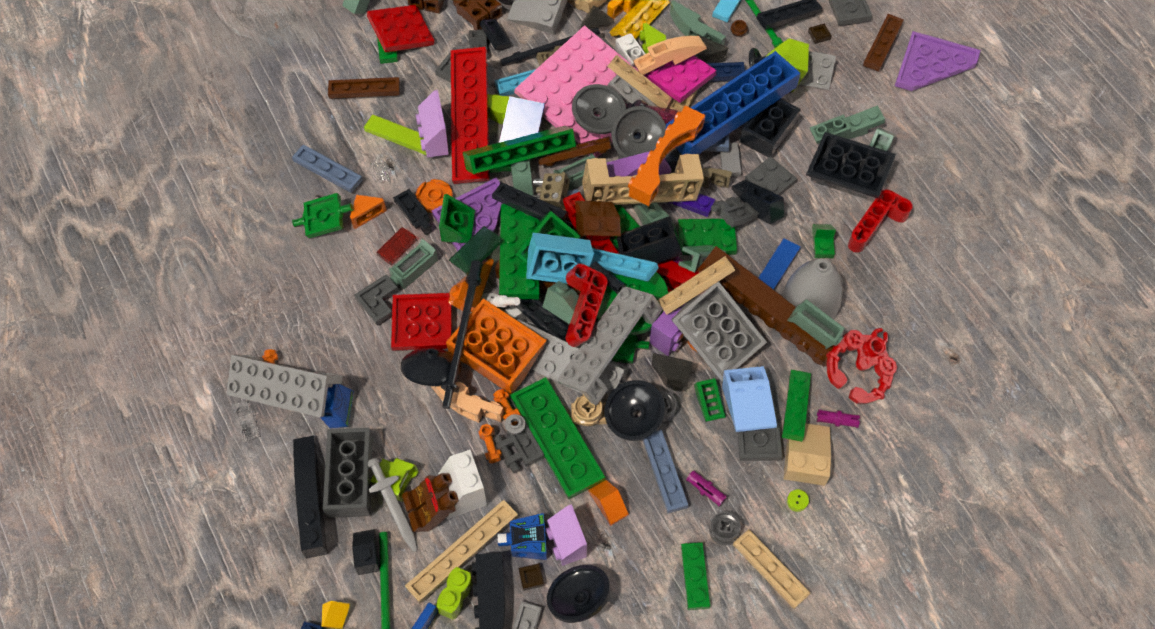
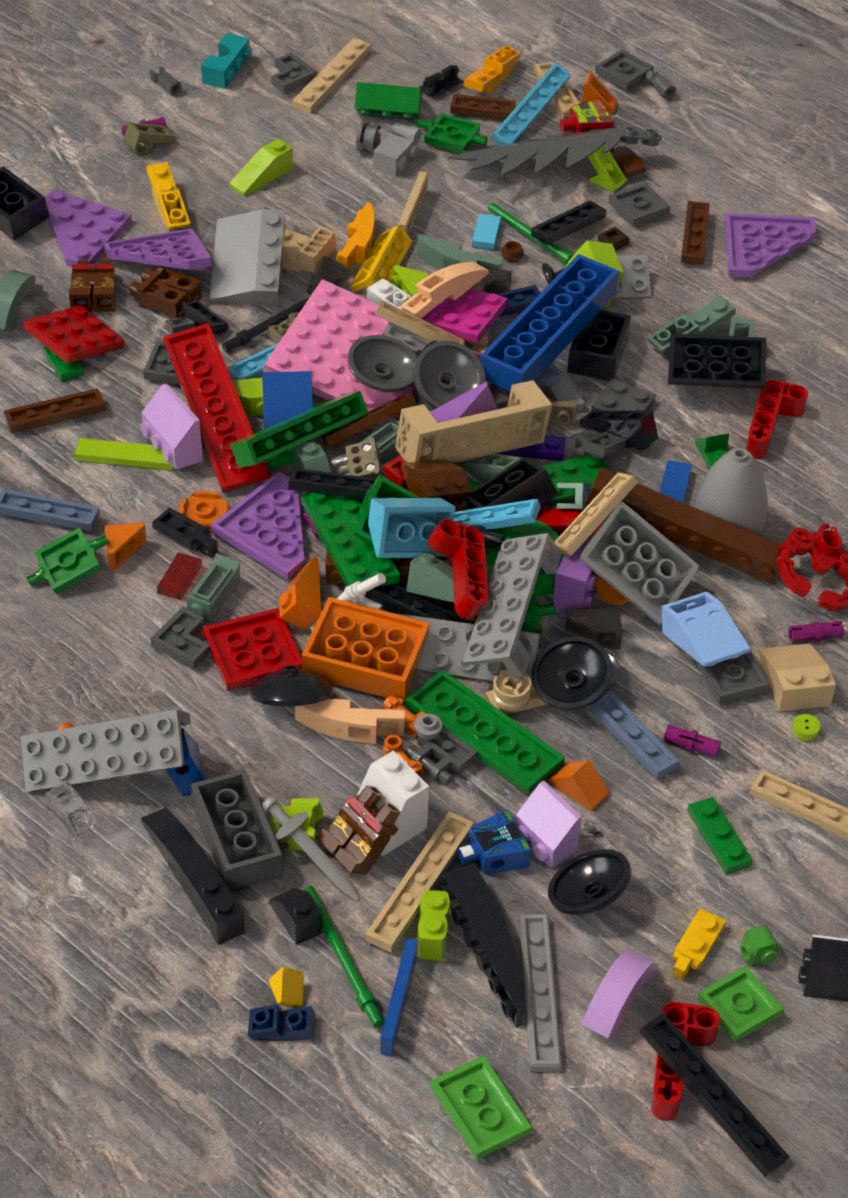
camera: 20 degrees left, 15 degrees down
(455, 221) = (250, 526): green slope -> none
(473, 280) = (308, 579): black bar -> none
(477, 248) = (292, 551): clear green piece -> none
(531, 576) = (519, 888): dark brown tile -> none
(685, 128) = (489, 413): orange arch -> none
(717, 399) = (650, 631): green slope -> none
(724, 527) = (734, 774): flat silver wheel -> none
(796, 405) = (762, 626): green plate -> none
(817, 324) = (753, 527): sand green window -> none

